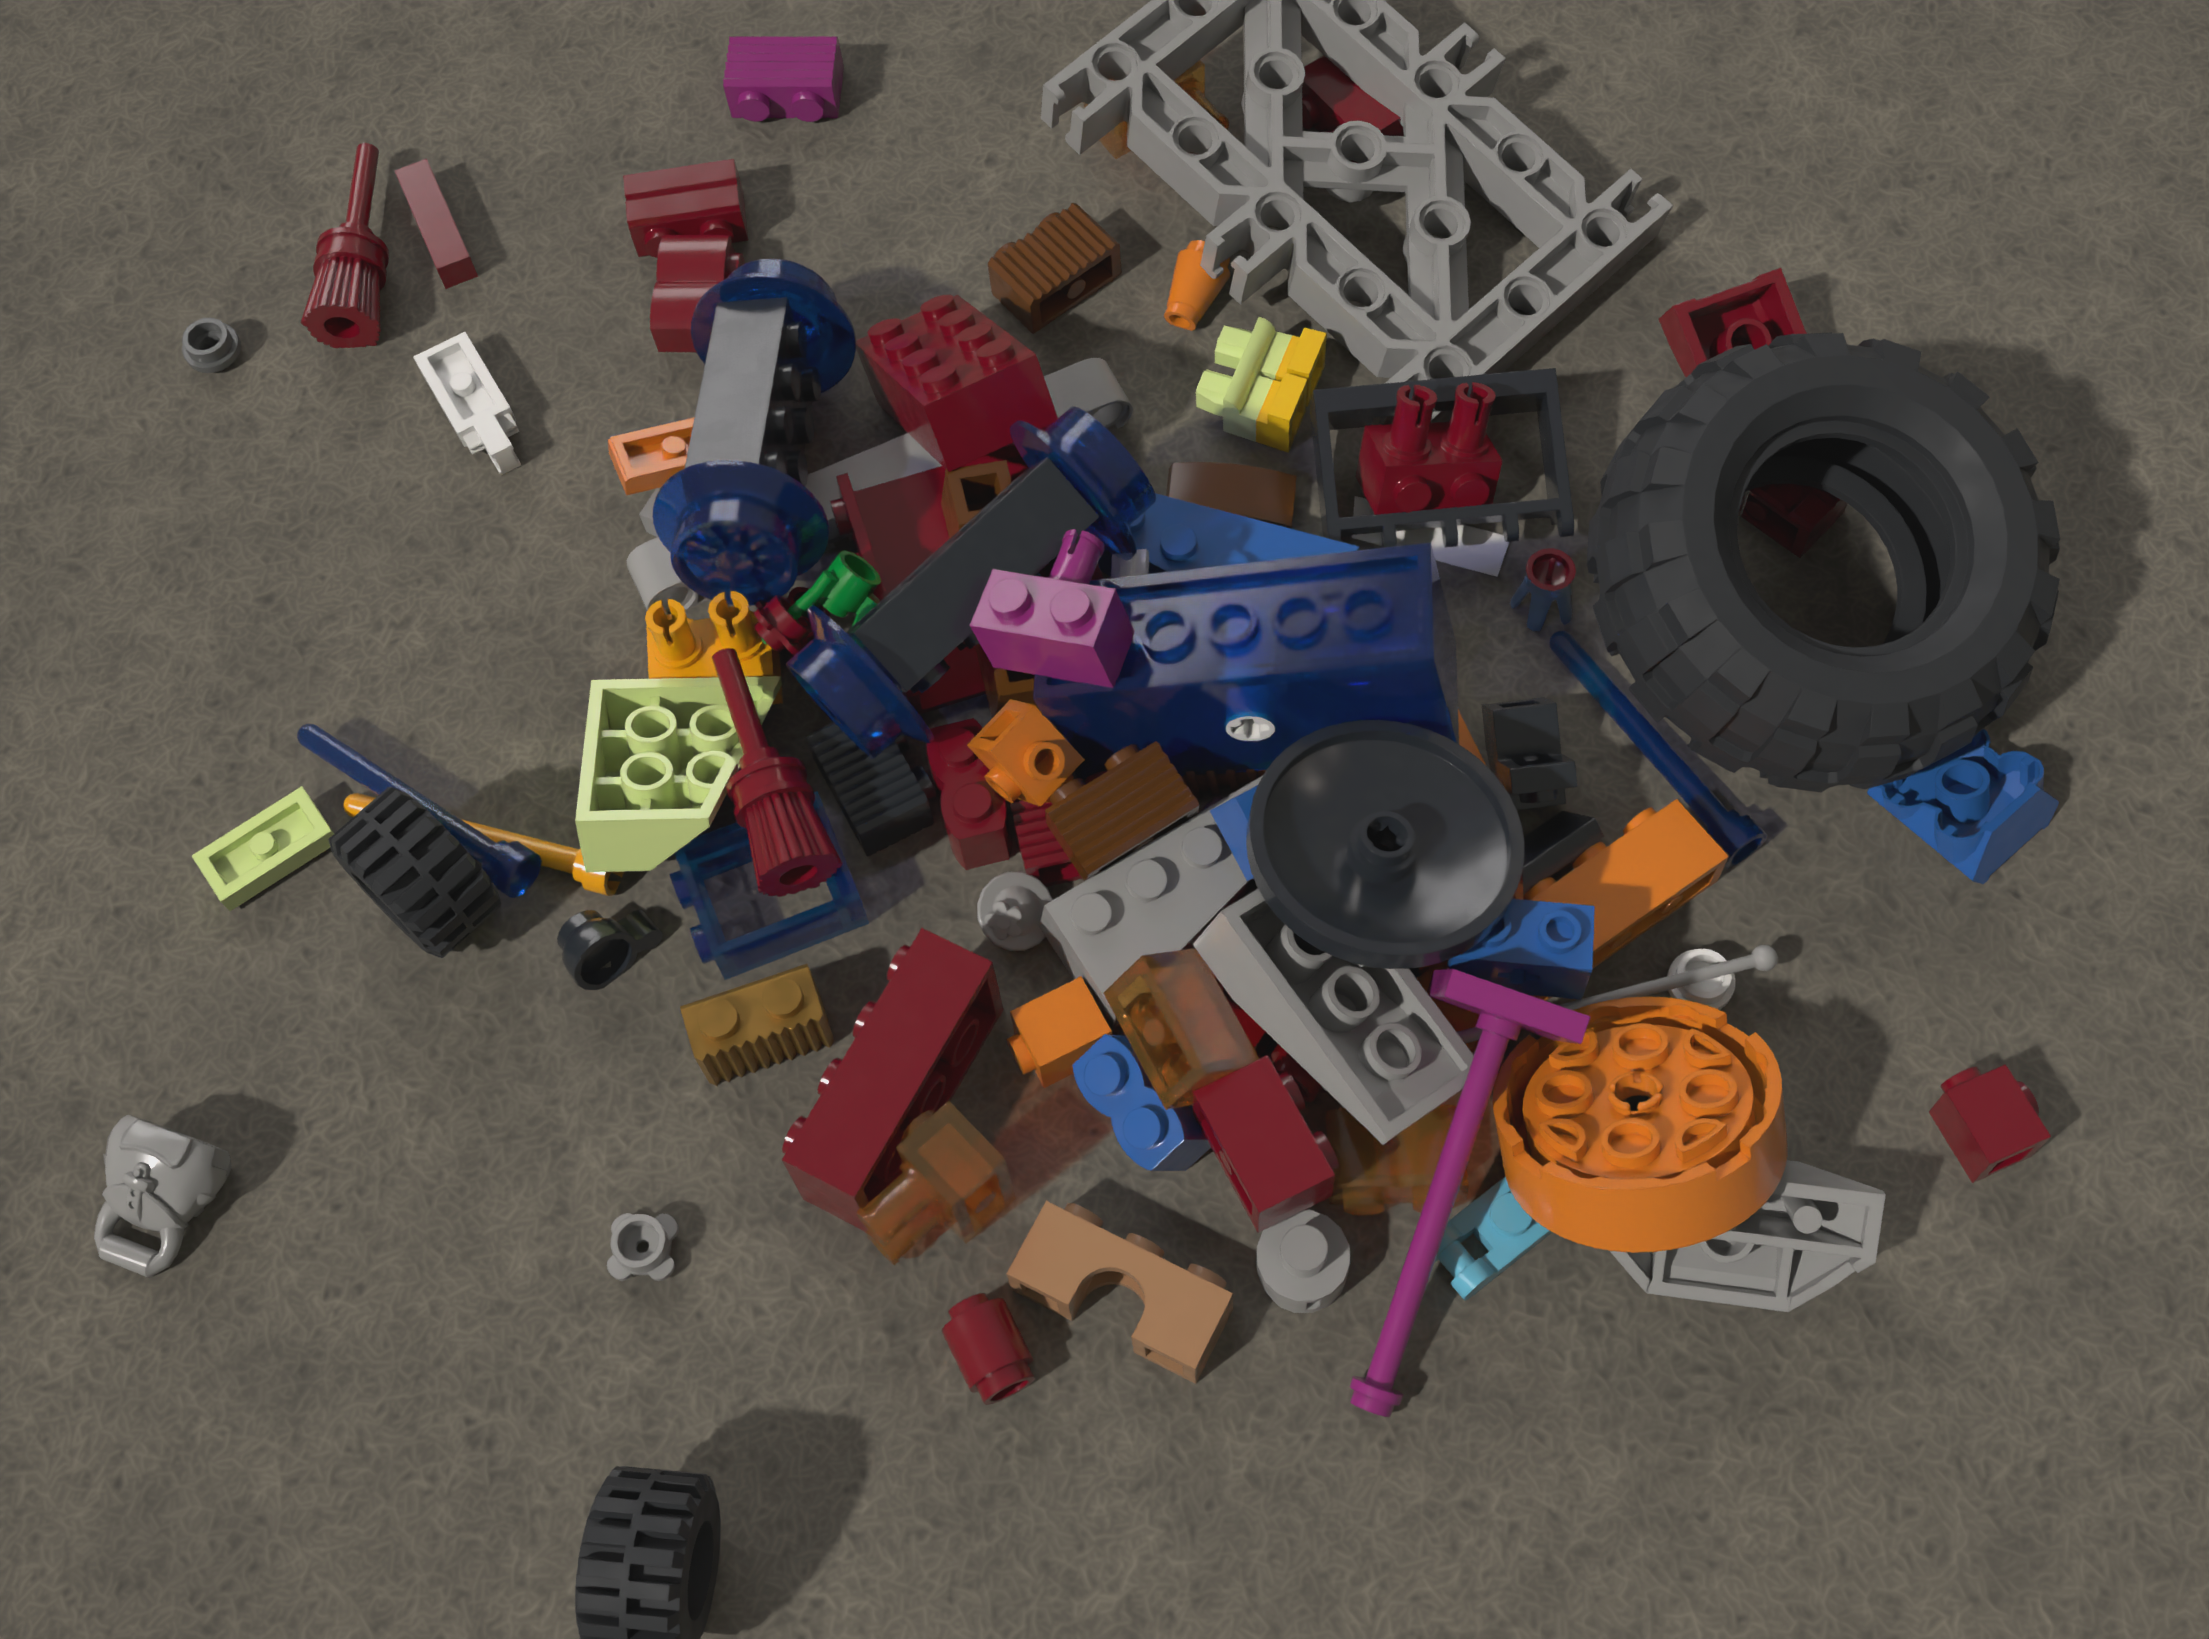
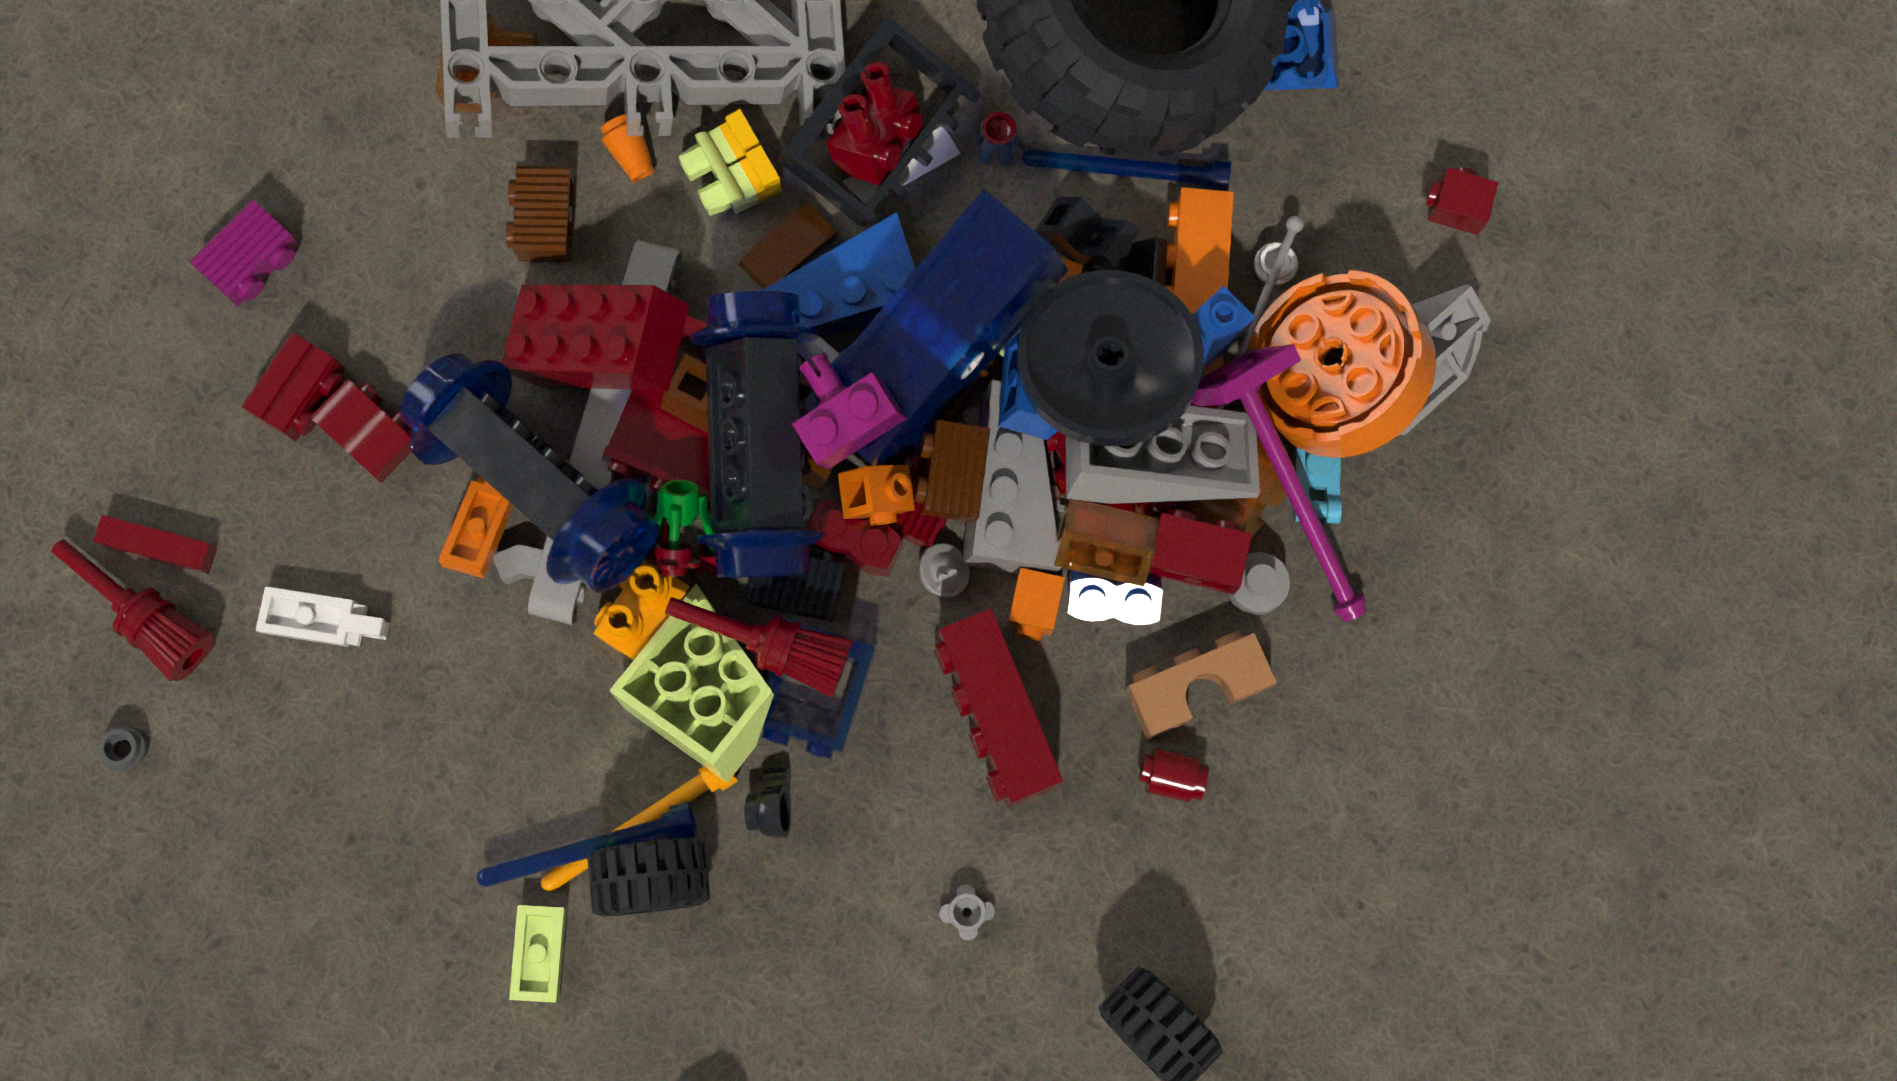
camera: 60 degrees left, 15 degrees up
(757, 1024) = (895, 756): pearl gold brick -> none
(946, 1180) = (1072, 725): clear orange brick -> none

